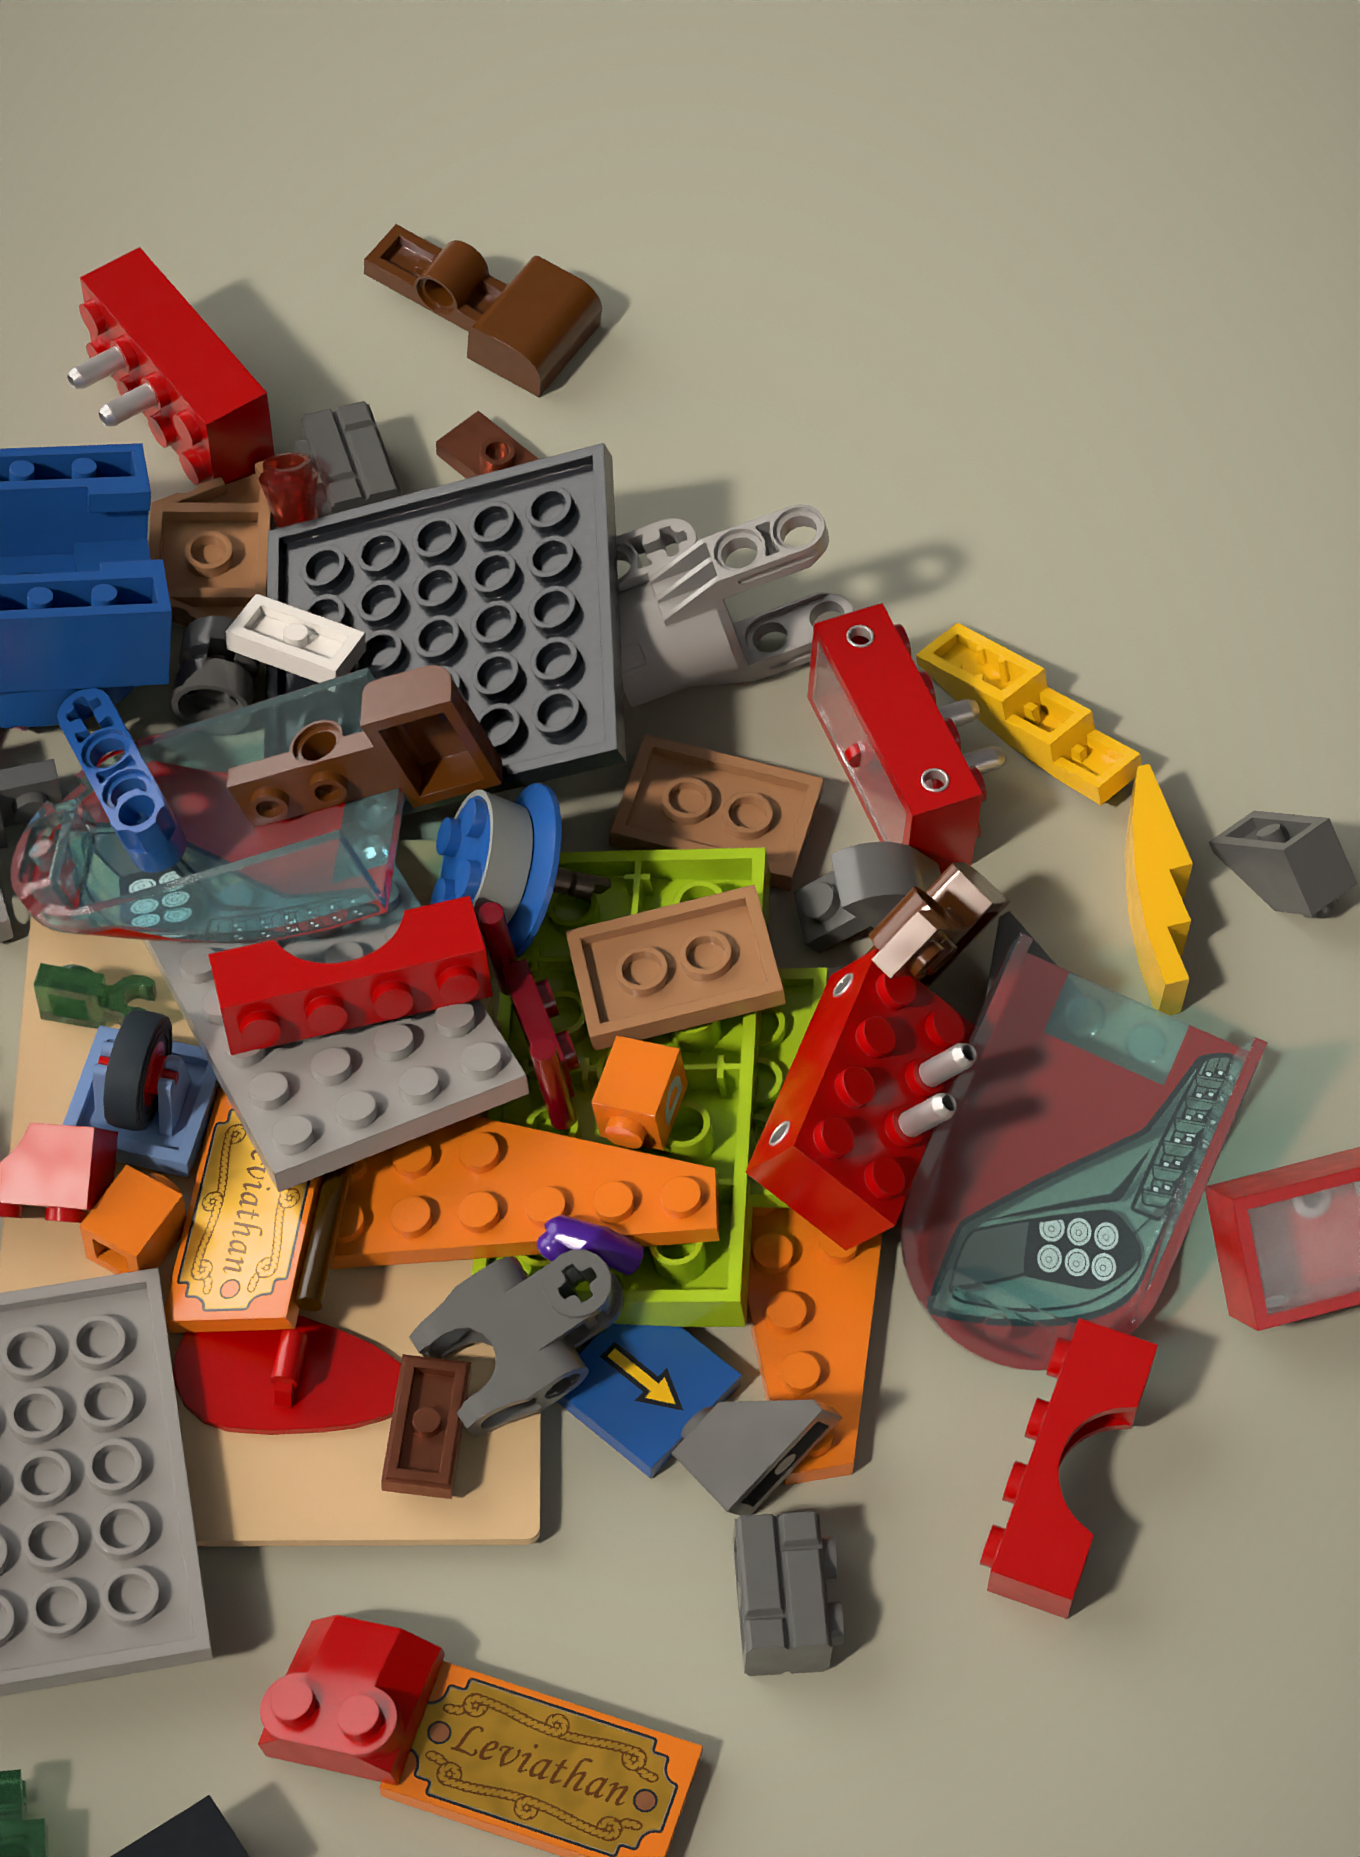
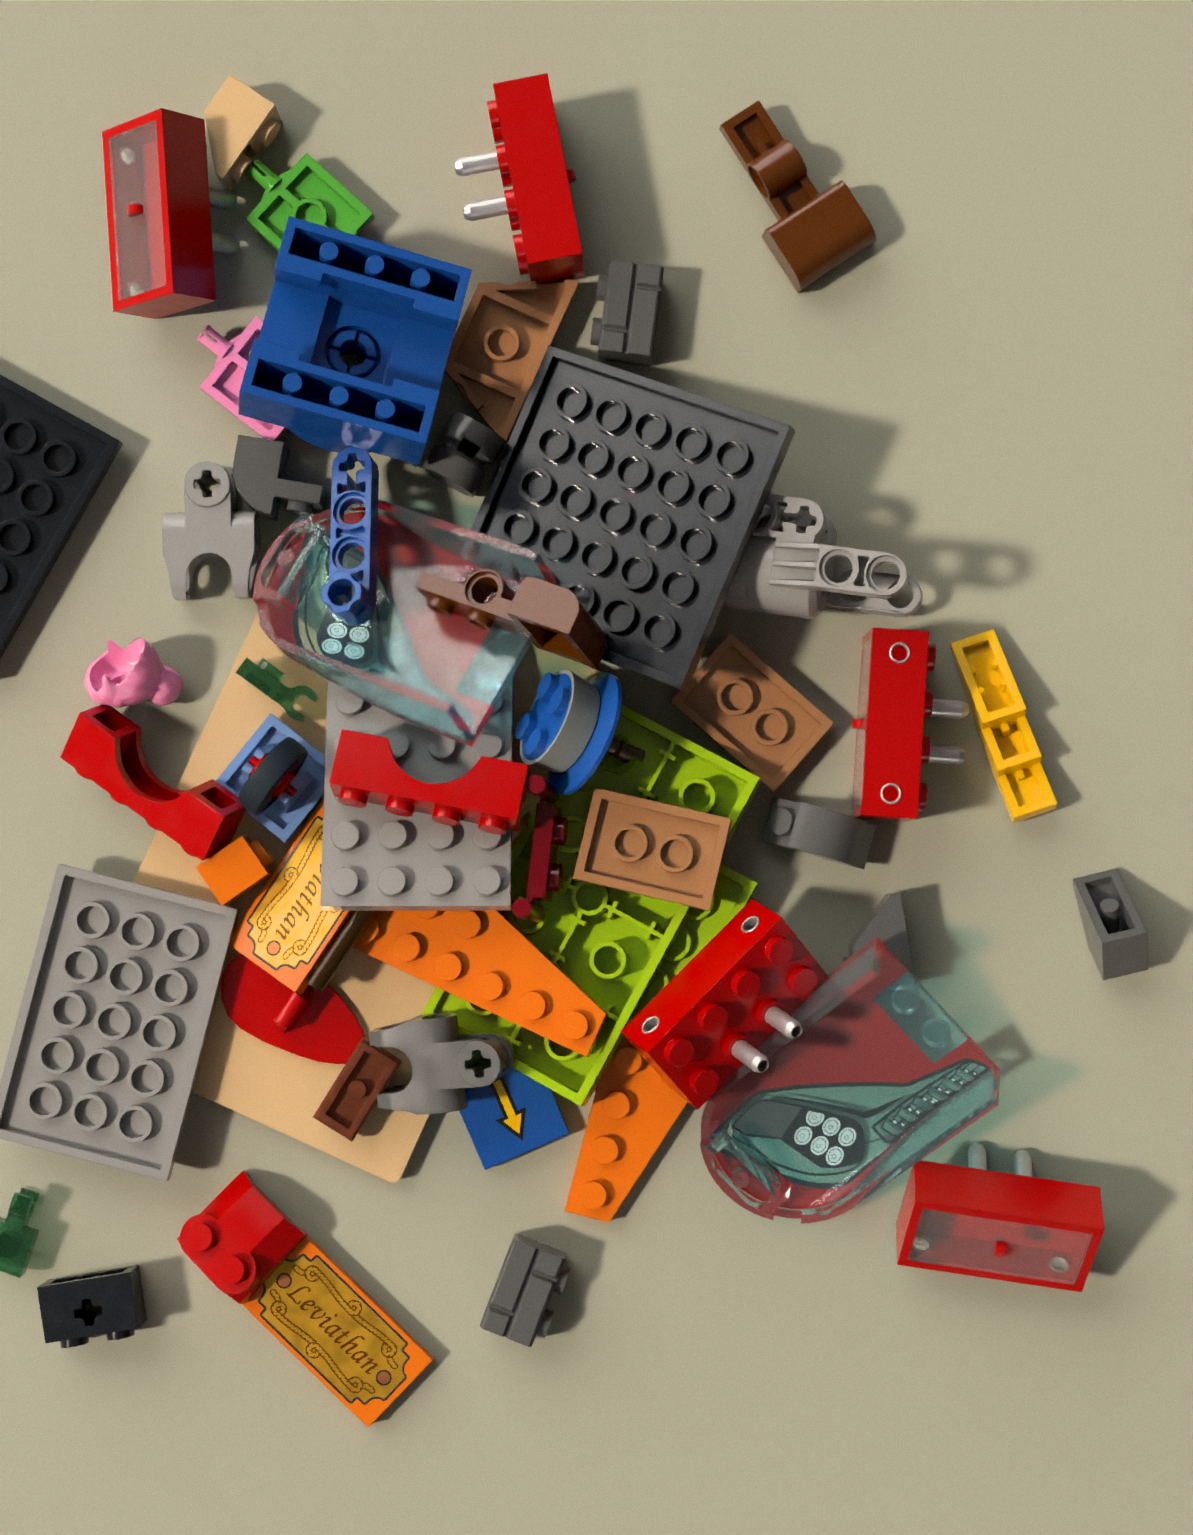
camera: 30 degrees right, 30 degrees up
(290, 487) = (575, 322): clear red cone -> none
(295, 640) = (518, 469): white plate -> none
(480, 448) = (738, 346): copper plate -> none
(569, 1234) = (502, 1029): dark purple arm -> none
(639, 1093) = (583, 936): orange brick -> none
(751, 1447) = (546, 1193): dark grey slope -> none
(935, 925) = (822, 906): reddish brown plate -> none
(1096, 1391) = (775, 1256): red arch -> none
(1155, 885) = (1019, 890): yellow slope -> none

